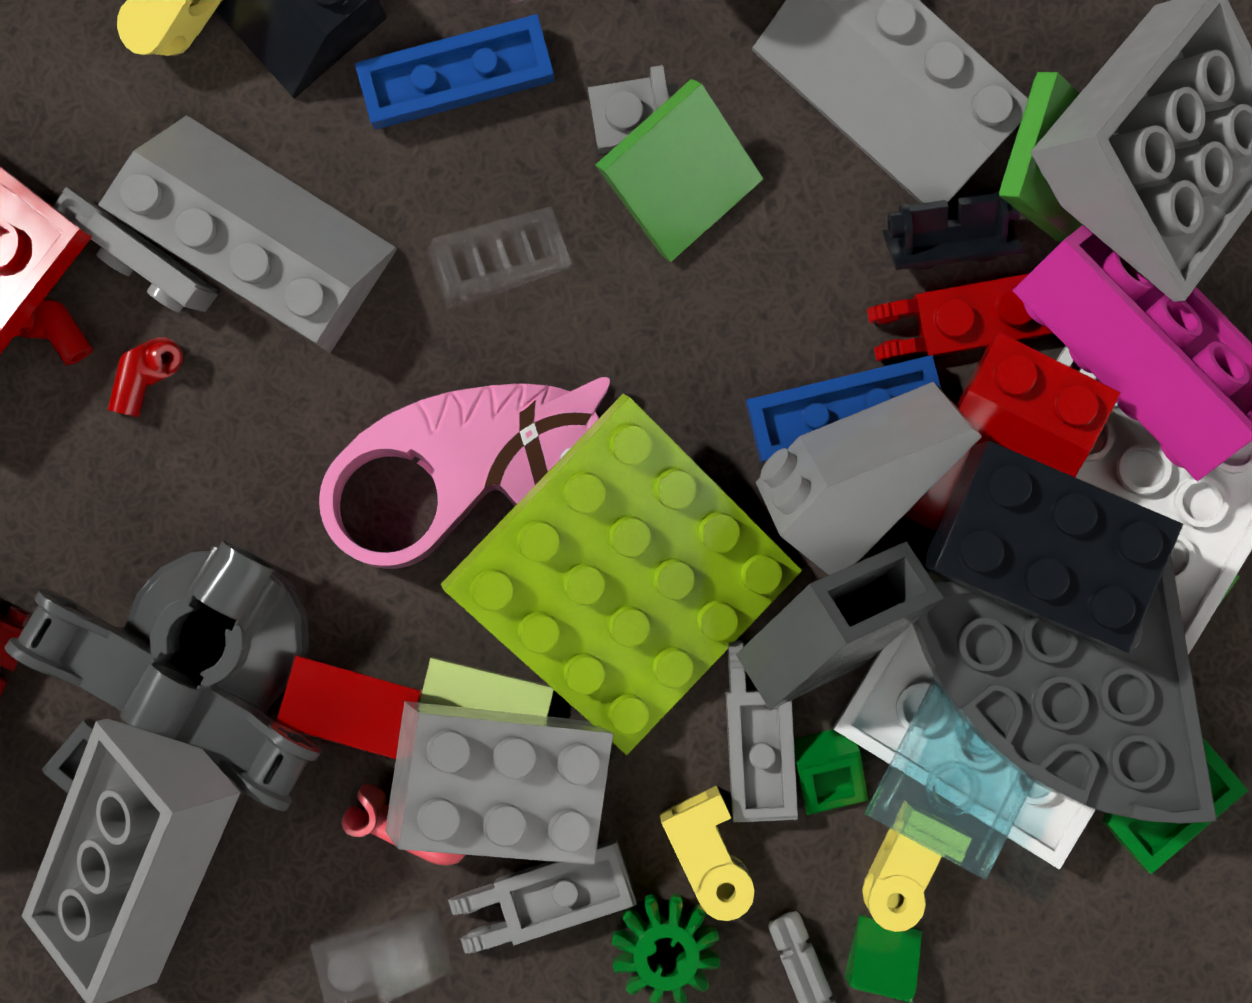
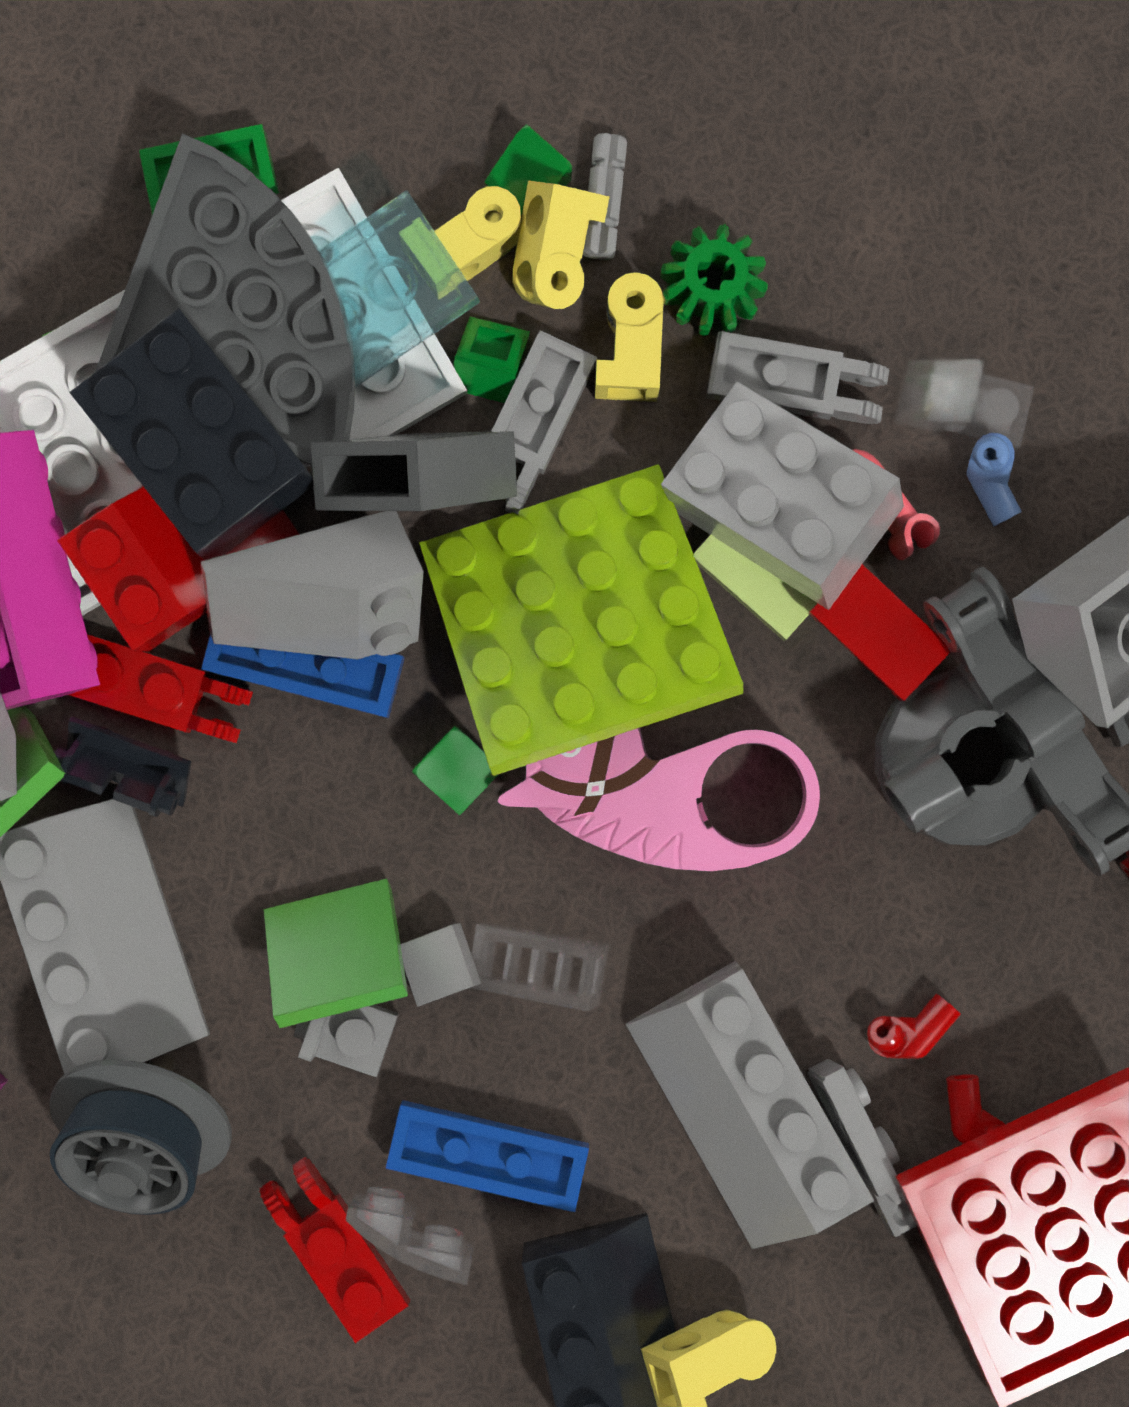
camera: 155 degrees left, 0 degrees up
(324, 904) = (989, 476): none -> medium blue arm
(584, 211) = (439, 964): none -> light grey tile
(661, 386) = (455, 770): none -> green slope
(827, 905) = (553, 243): none -> light yellow leg

